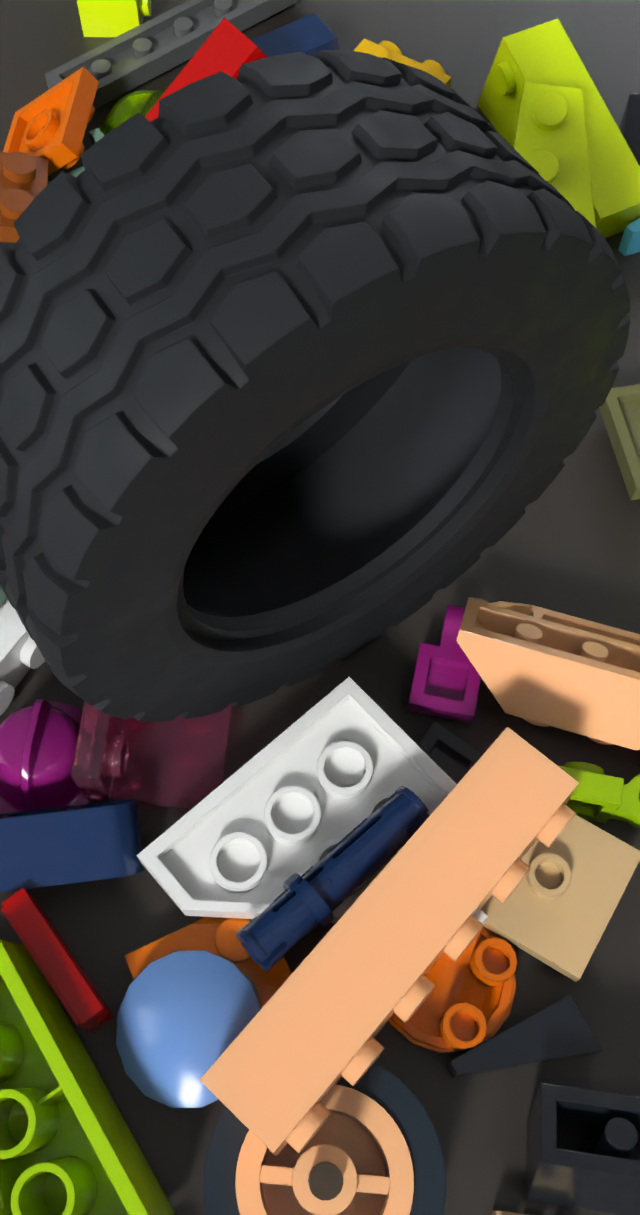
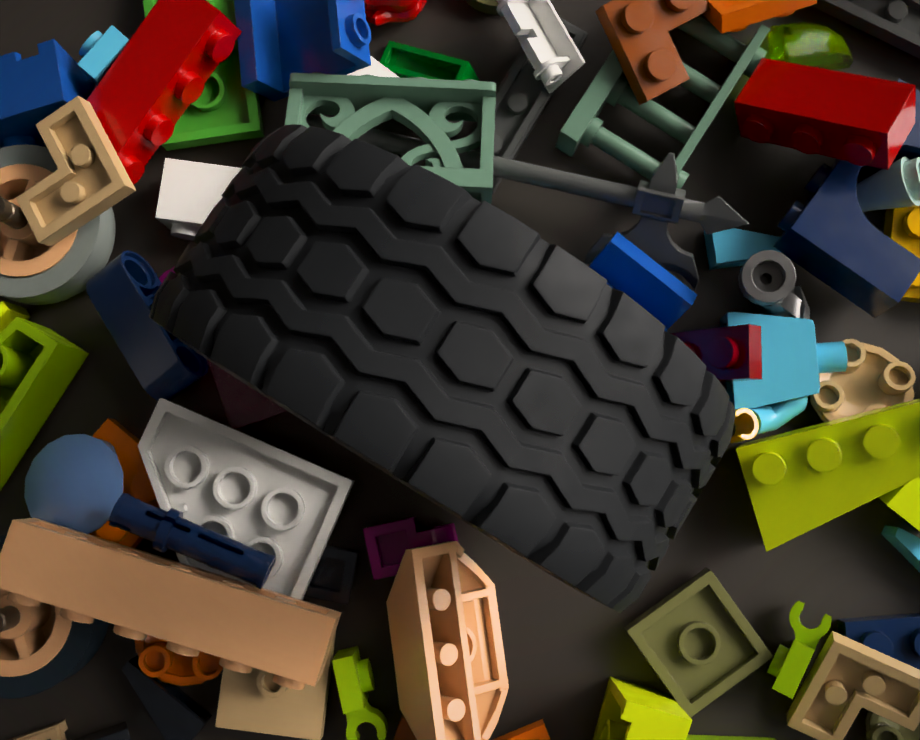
camera: 65 degrees right, 20 degrees up
(56, 961) = (81, 380): red tile -> none

